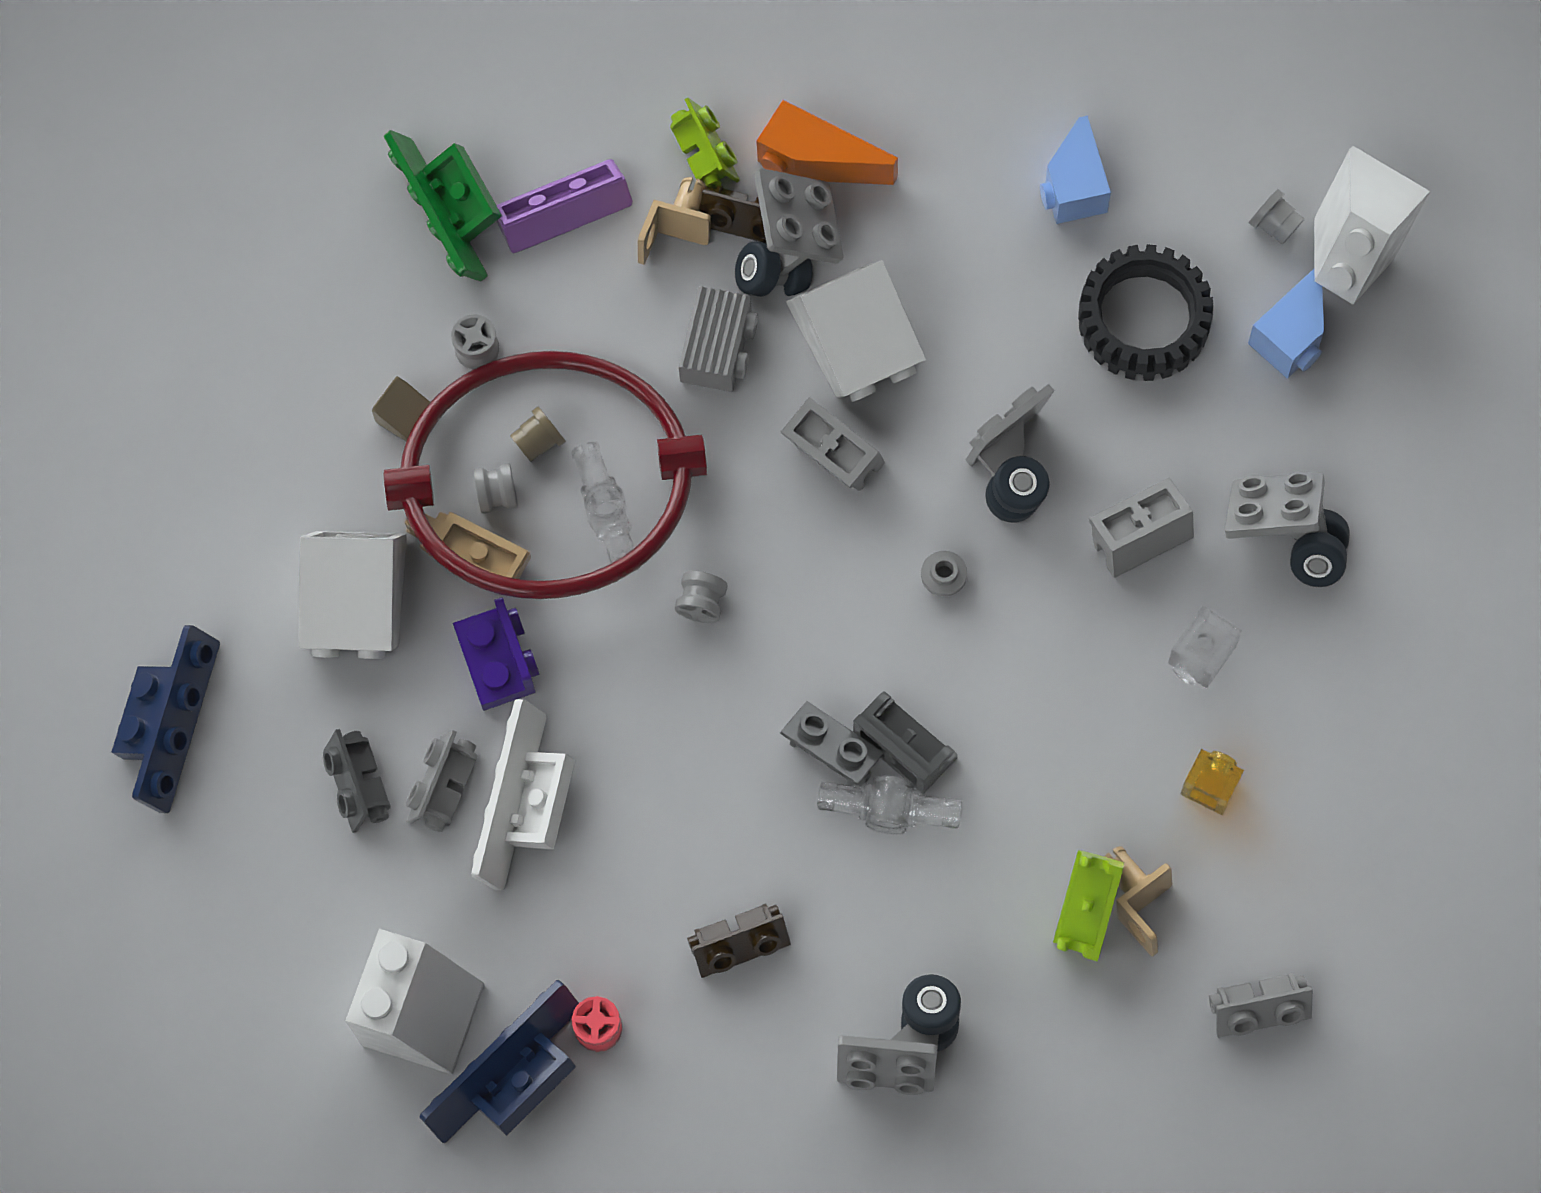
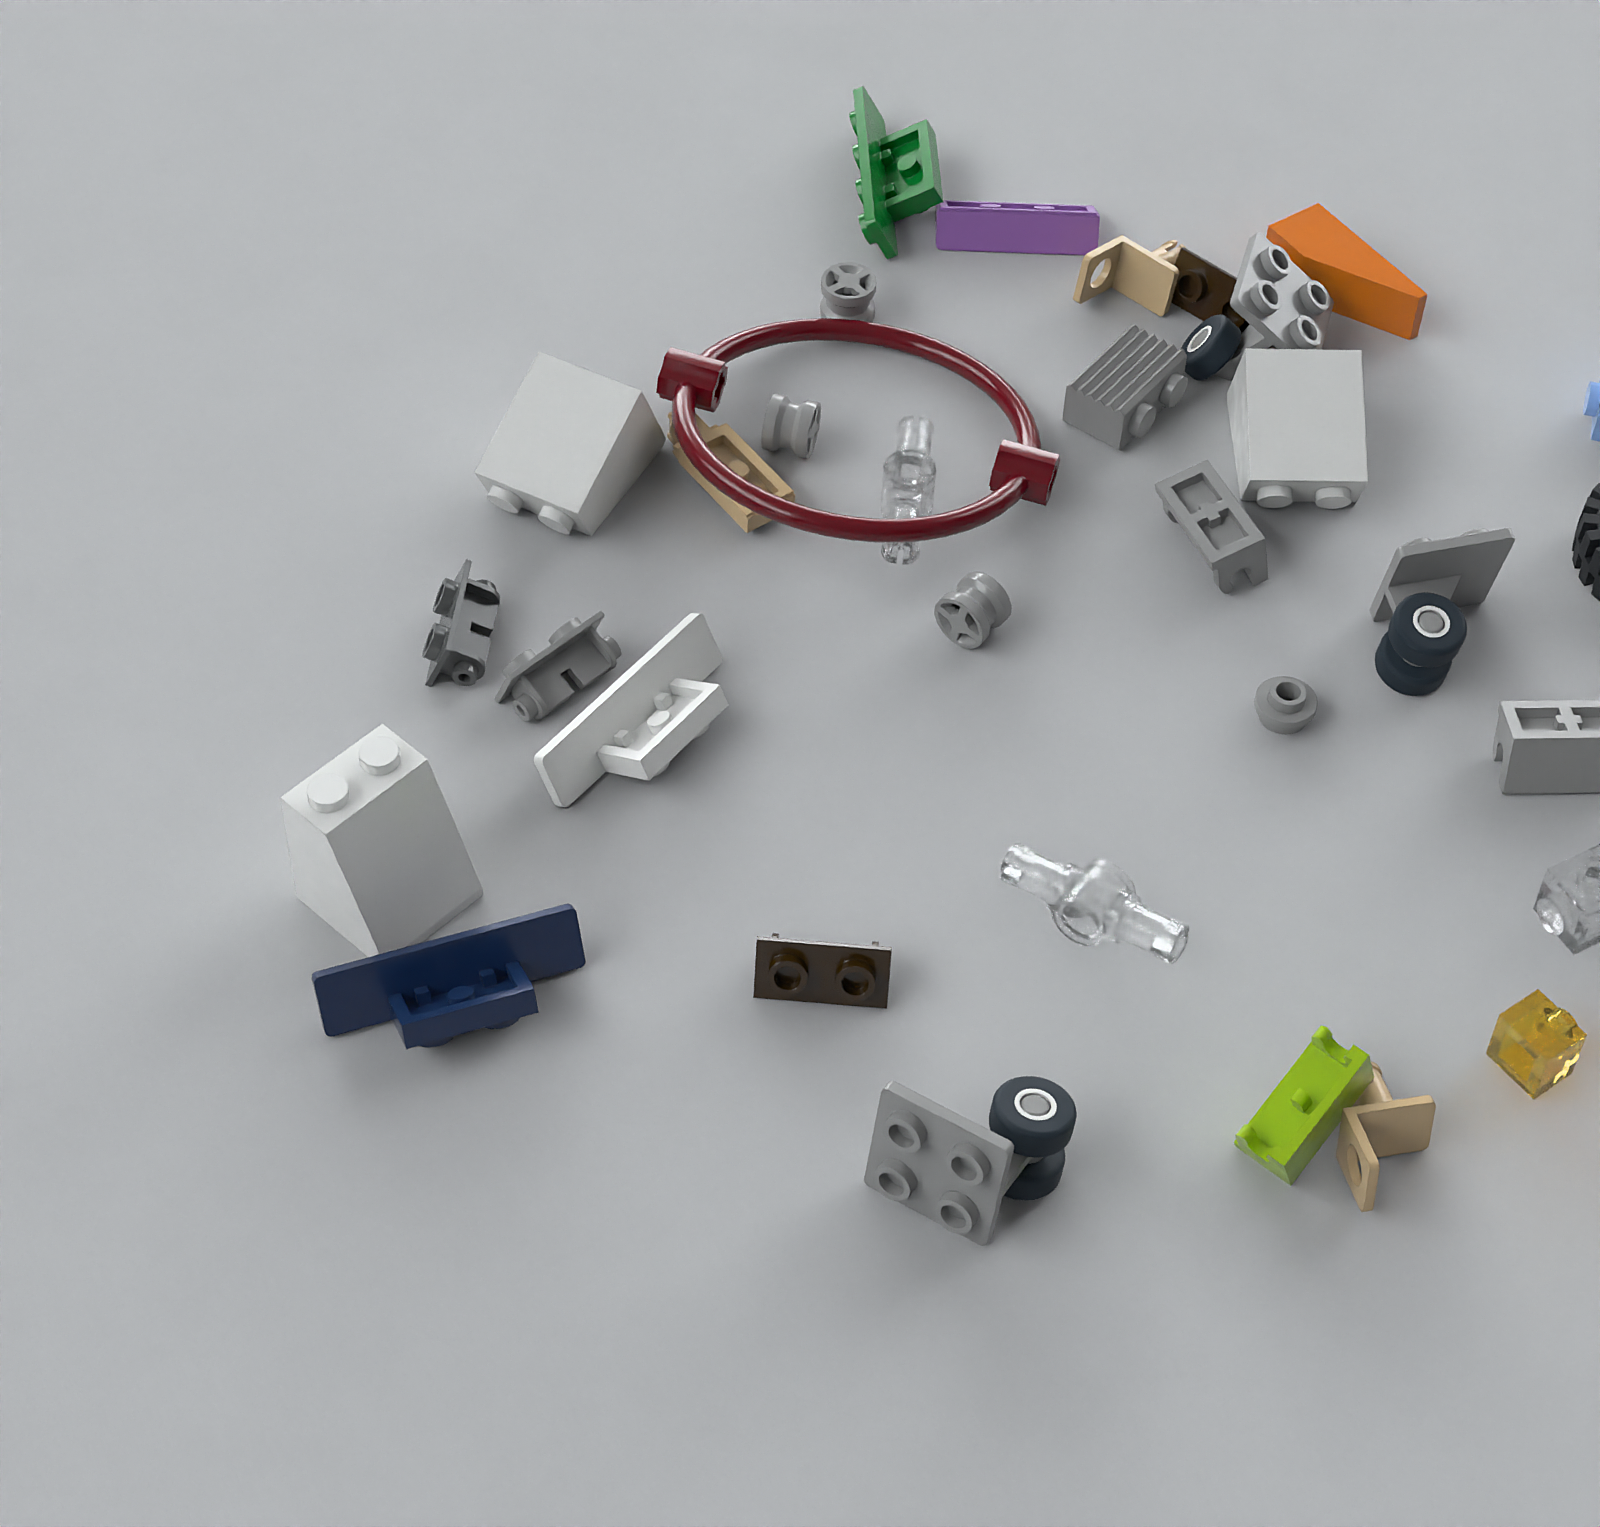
camera: 20 degrees right, 20 degrees down
(163, 717) = (289, 490): dark blue bracket -> none
(399, 408) = (724, 316): dark tan slope -> none
(495, 656) = (698, 576): dark purple bracket -> none
(537, 435) = (868, 398): dark tan piece -> none
(597, 1013) = (584, 967): coral wheel -> none
(698, 129) = (1203, 221): lime hinge -> none
(832, 744) = (1048, 803): dark grey hinge -> none
(905, 742) = (1142, 845): dark grey hinge -> none
(1283, 1002) = (1491, 1334): light grey hinge -> none

